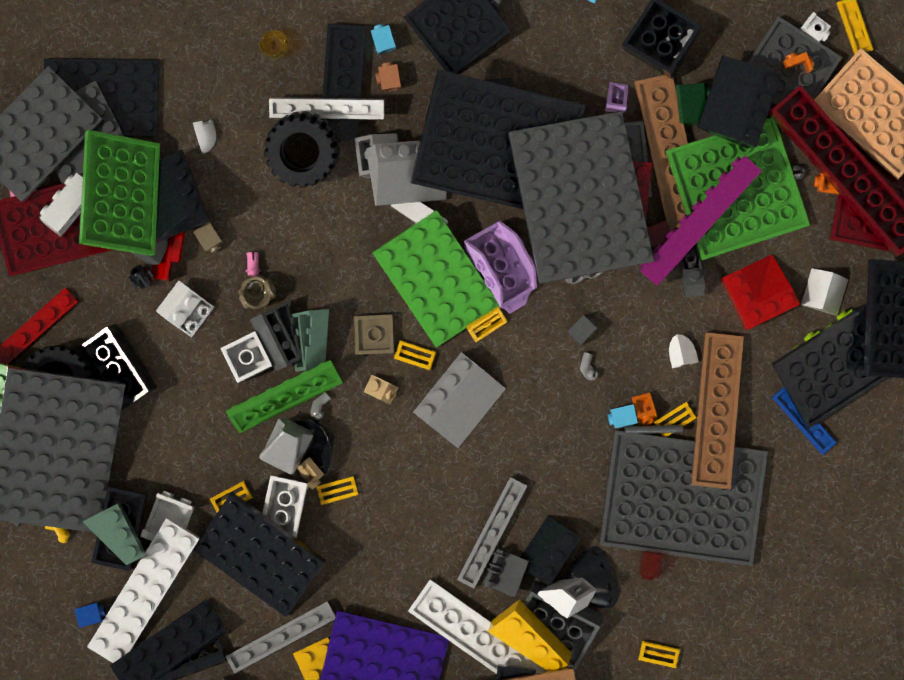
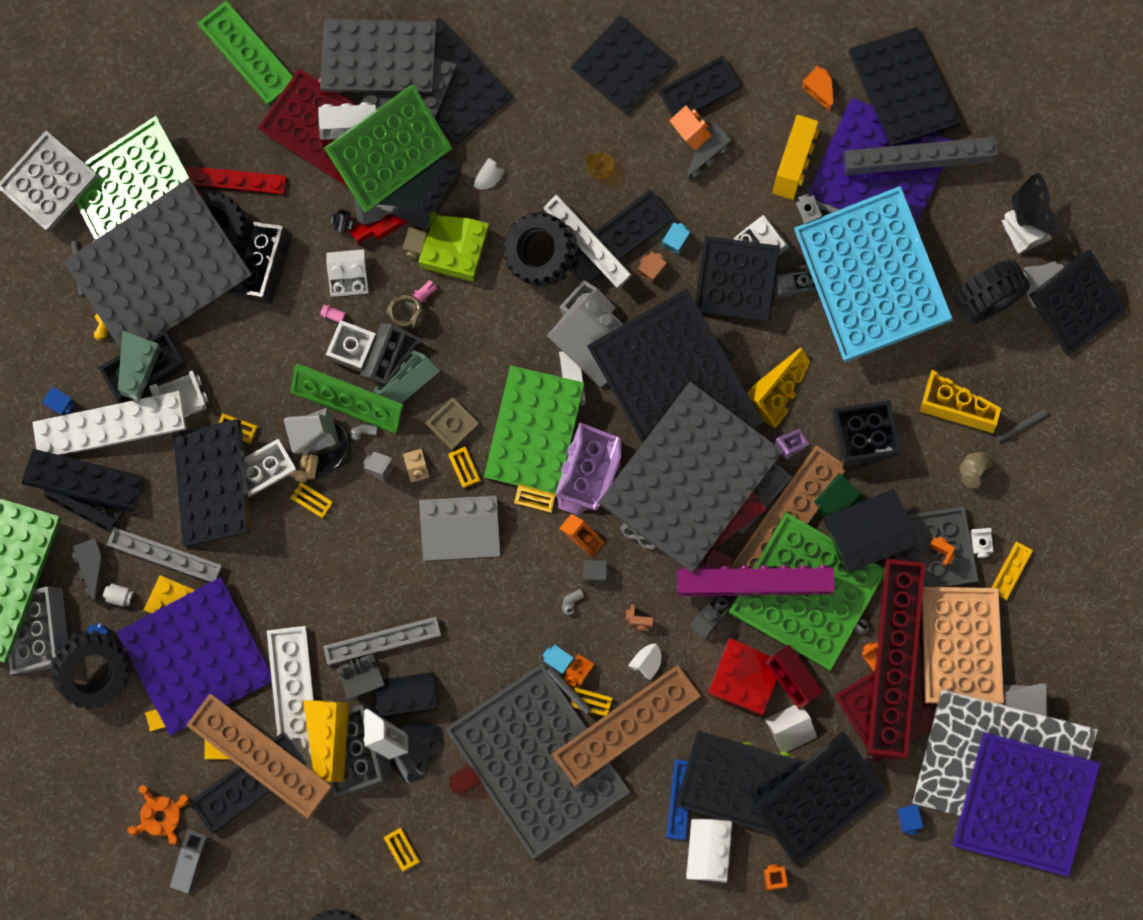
camera: 50 degrees right, 10 degrees down
(207, 348) = (331, 313): none -> bright pink pin
(238, 210) = (454, 246): none -> lime slope
(357, 418) = (378, 465): none -> light grey slope
(545, 314) = (582, 535): none -> orange slope
(564, 69) = (775, 388): none -> yellow wedge
(652, 330) = (641, 623): none -> nougat bracket
(791, 256) = (793, 676): none -> dark red brick
(860, 432) = (709, 850): none -> white slope

